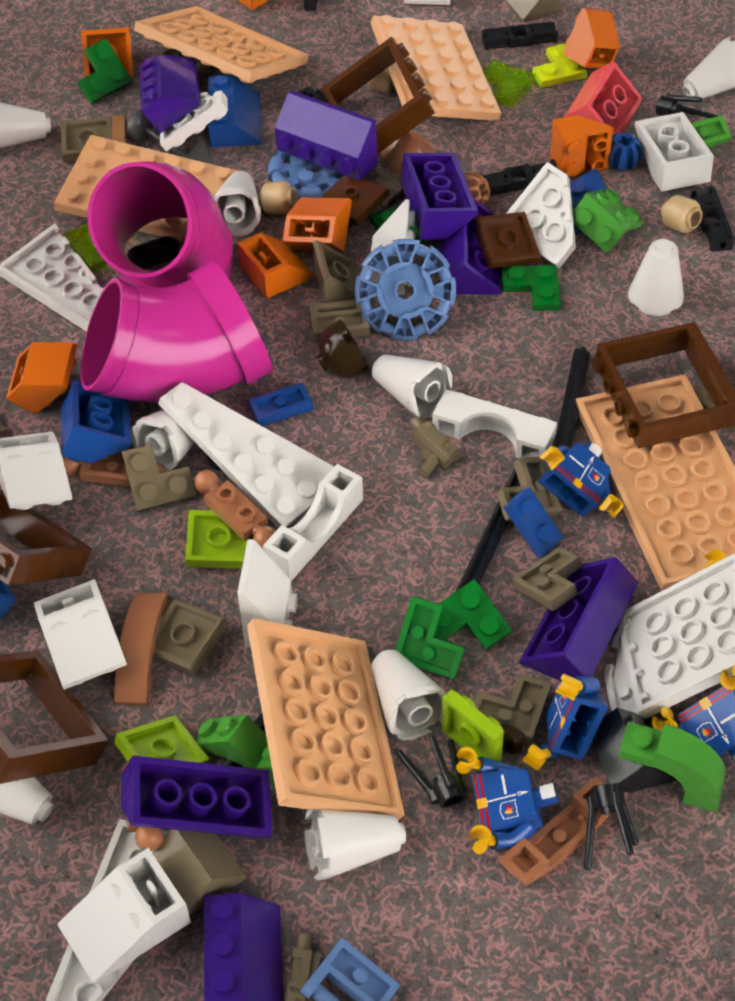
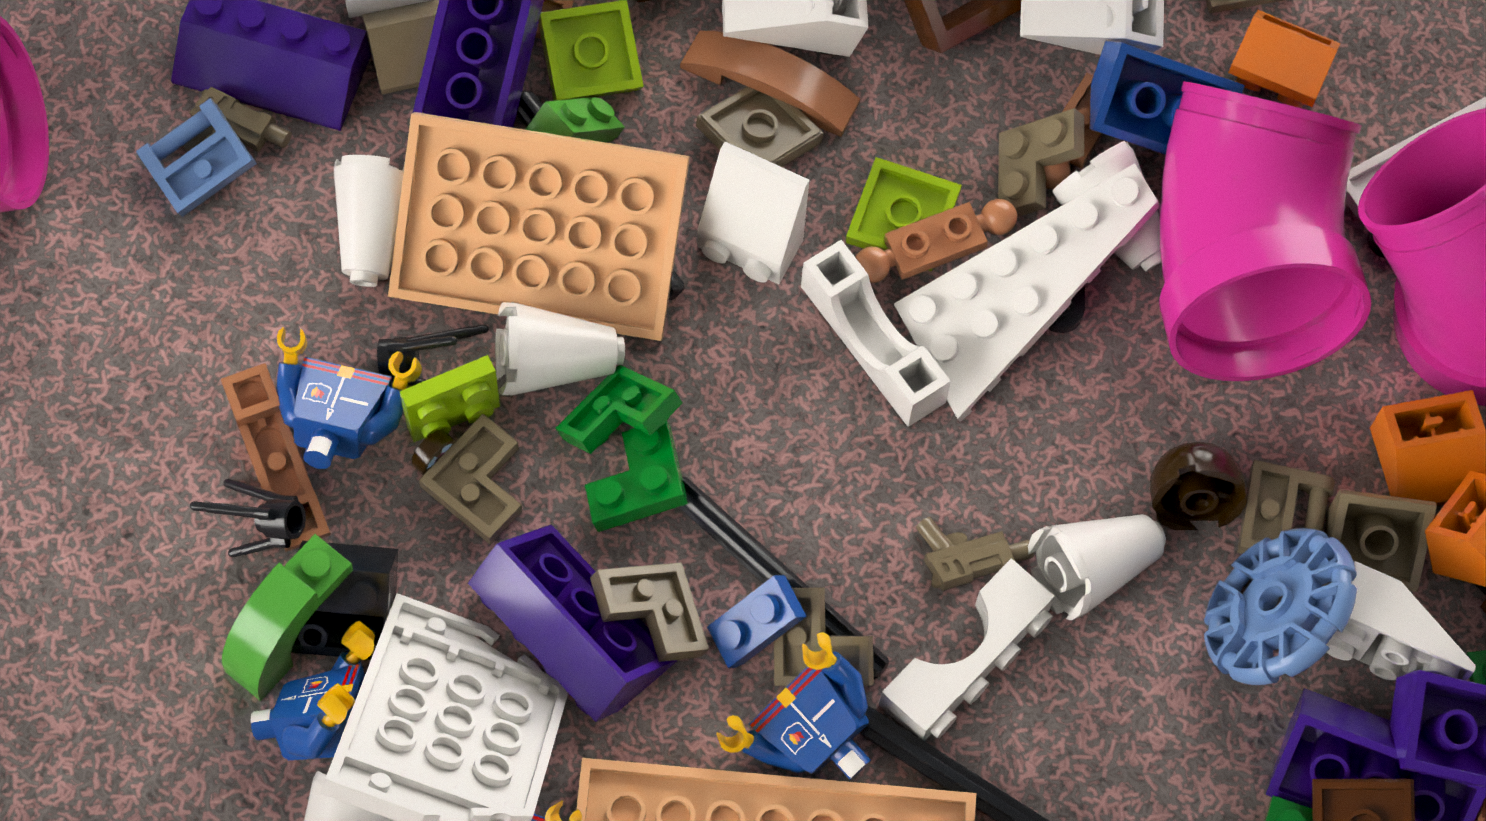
camera: 105 degrees right, 15 degrees up
(280, 404) = (1127, 372): blue plate -> none
(570, 720) = (413, 528): blue torso -> none

